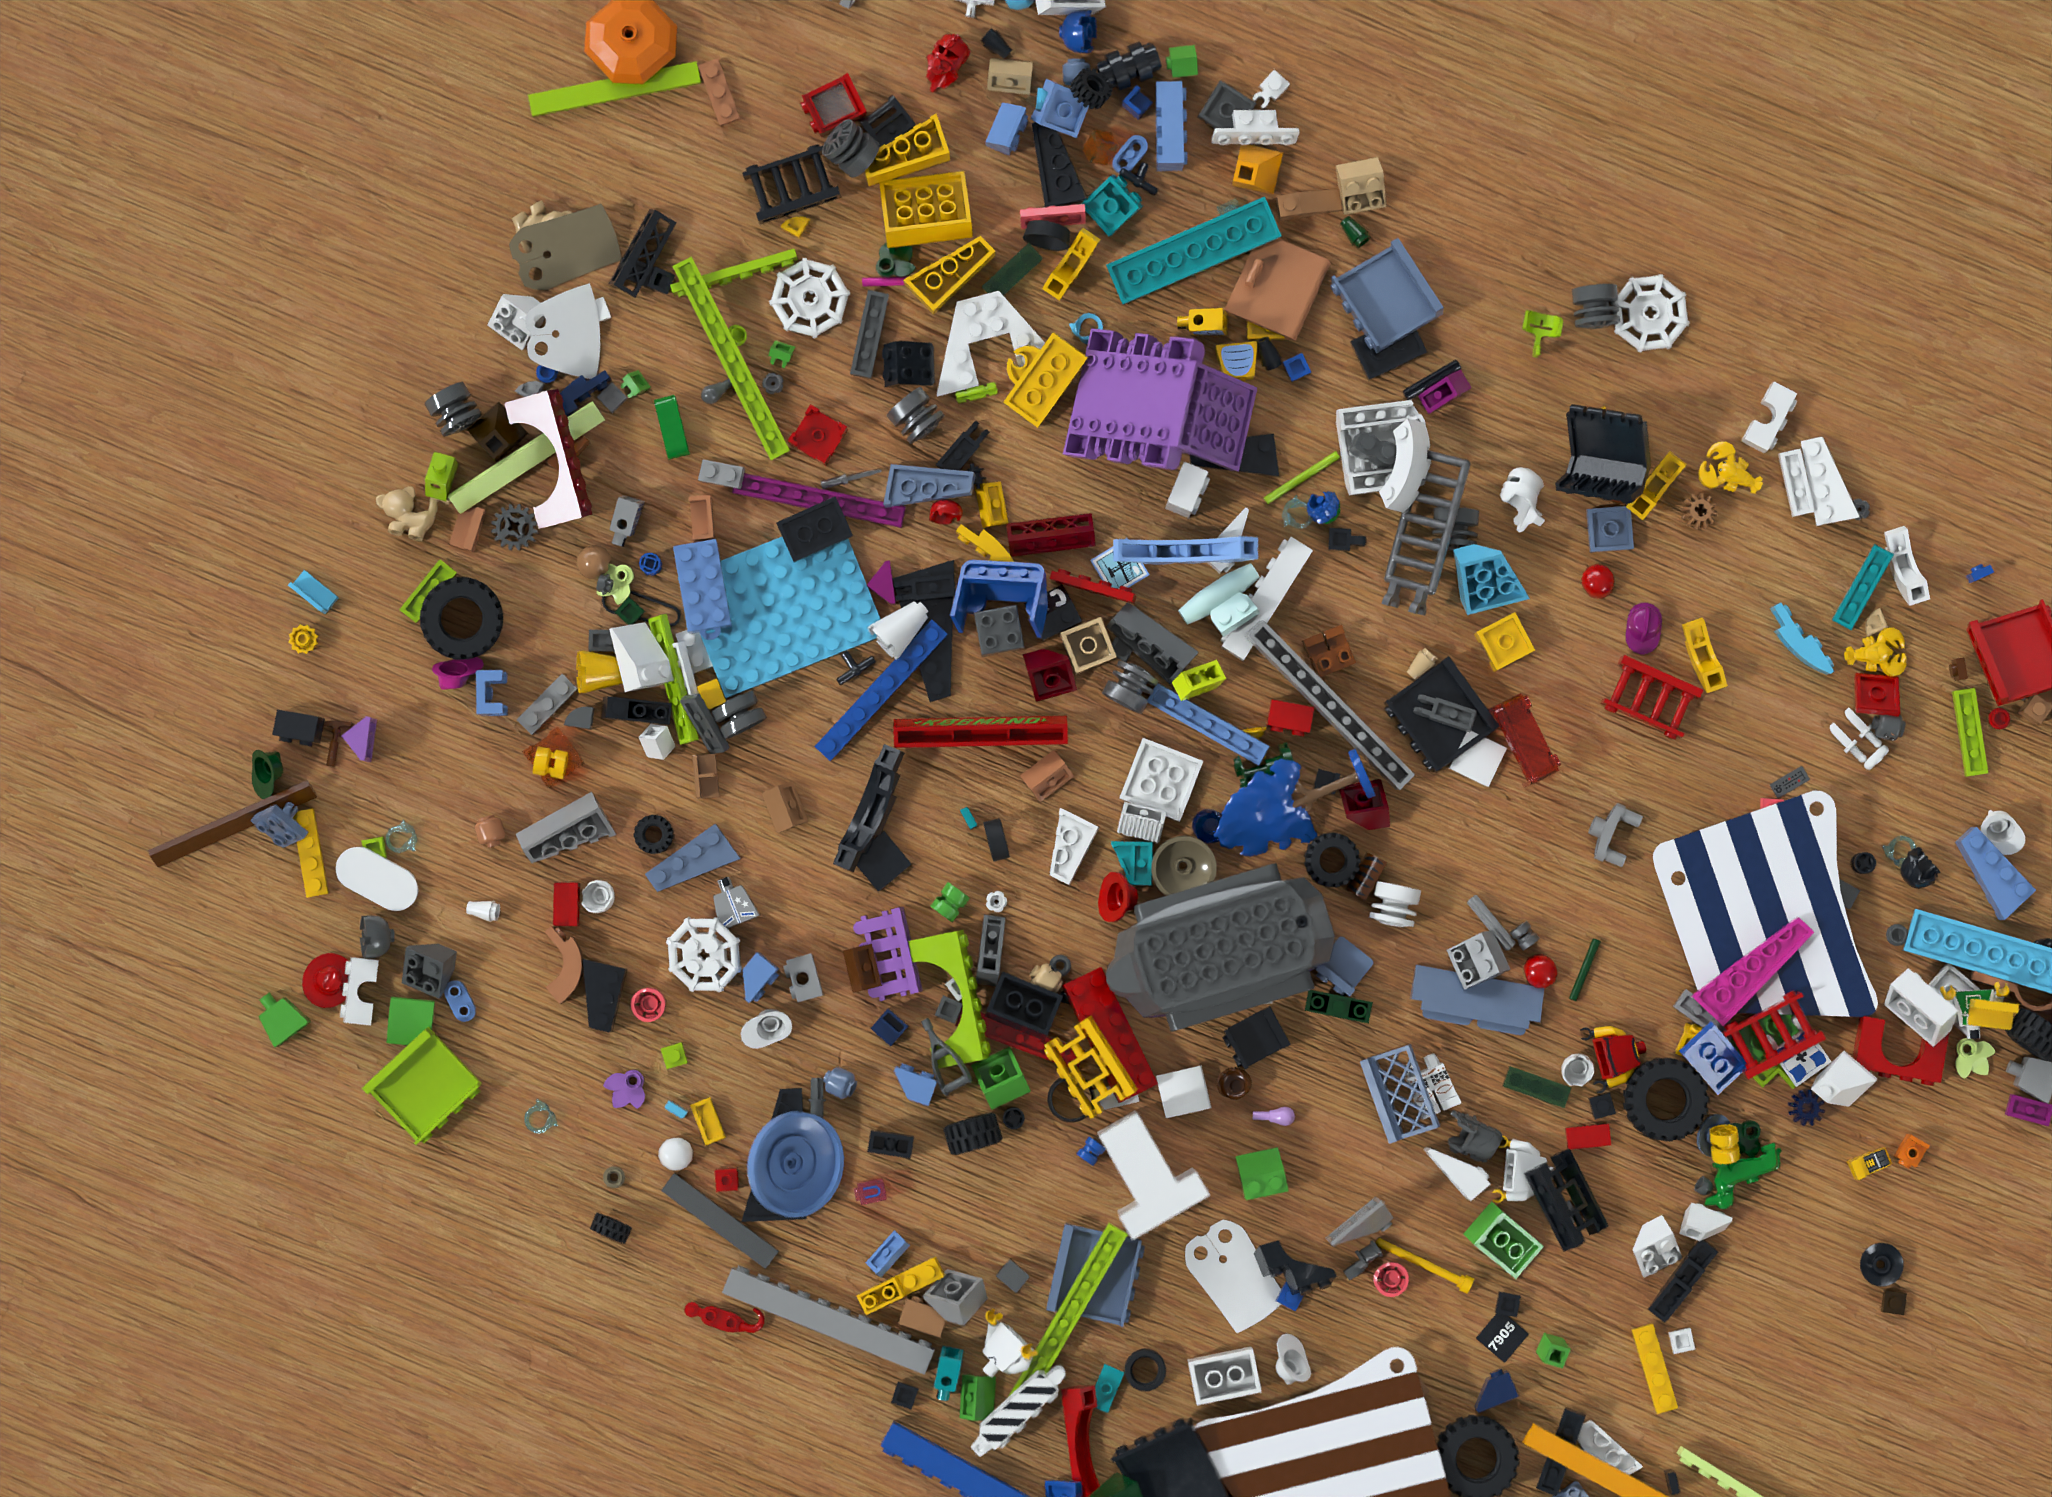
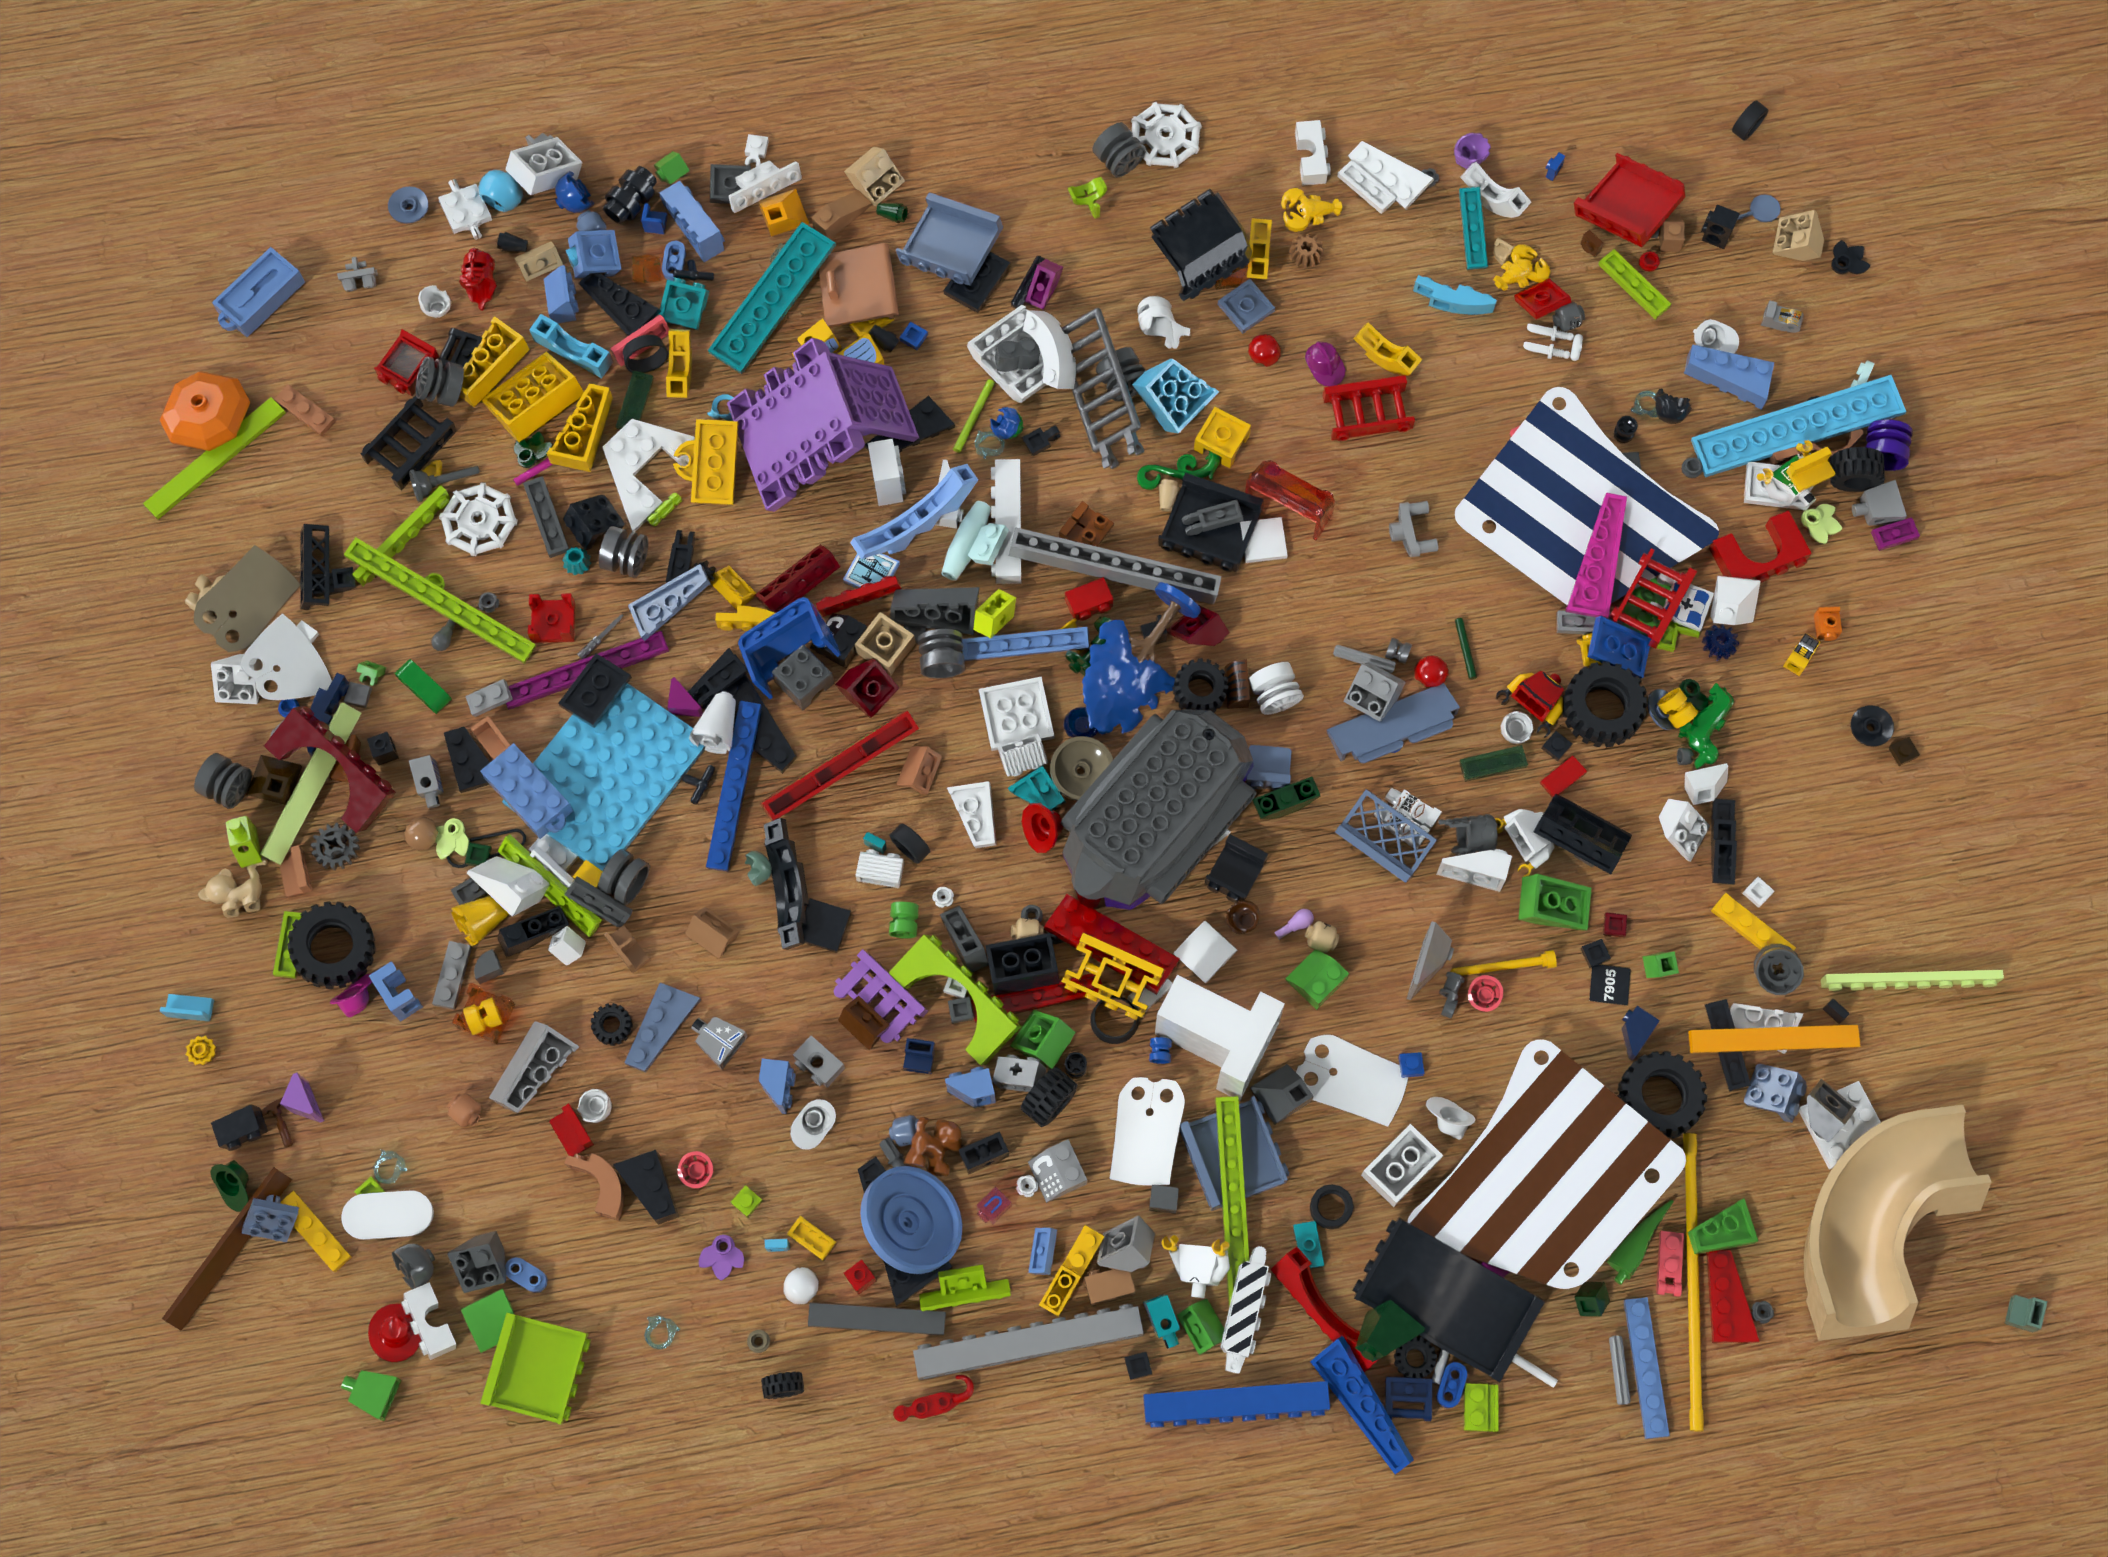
camera: 25 degrees left, 15 degrees down
(484, 909) = (501, 1181): white cone -> none
(604, 464) = (383, 748): none -> black brick
(604, 584) = (441, 843): dark grey plate -> none
(653, 565) = (472, 809): blue wheel -> none
(671, 518) = (466, 759): none -> black wing
(695, 963) = (705, 1095): white plate -> none
(780, 236) = (423, 484): none -> dark grey piece
(781, 351) = (481, 572): bright green tile -> none
(804, 1243) = (963, 1287): none -> lime bracket
(858, 778) = (760, 867): none -> sand green hair
(868, 1110) = (946, 1137): none -> dark orange animal
(871, 393) = (576, 561): none -> teal piece
(893, 60) = (434, 301): none -> white hair
(908, 1197) = (1022, 1181): none -> white plate
(937, 1054) = (974, 1050): dark grey piece -> none
(941, 1196) = (1057, 1171): none -> light grey slope
(945, 511) = (697, 613): red hair -> none
(958, 843) = (880, 869): none -> white brick
(968, 1107) = (1017, 1073): none -> light grey brick
(987, 184) = (553, 337): none -> medium azure arch
(1029, 1221) = (1142, 1142): none -> white piece
(1091, 88) = (608, 221): black tyre -> none
(1167, 1251) = (1282, 1093): none -> dark grey slope
(1289, 1142) = (1322, 937): none -> tan head
(1299, 1275) = (1405, 1039): black arch -> none
(1447, 650) = (1184, 461): none -> green plant
(1541, 1290) = (1615, 925): none -> dark red tile
(1642, 1428) = (1781, 981): none -> dark grey wheel
(1789, 782) = (1523, 407): dark grey sticker -> none
(1914, 510) = (1471, 149): none -> medium lavender hair
(1921, 1007) = (1752, 502): white brick -> none

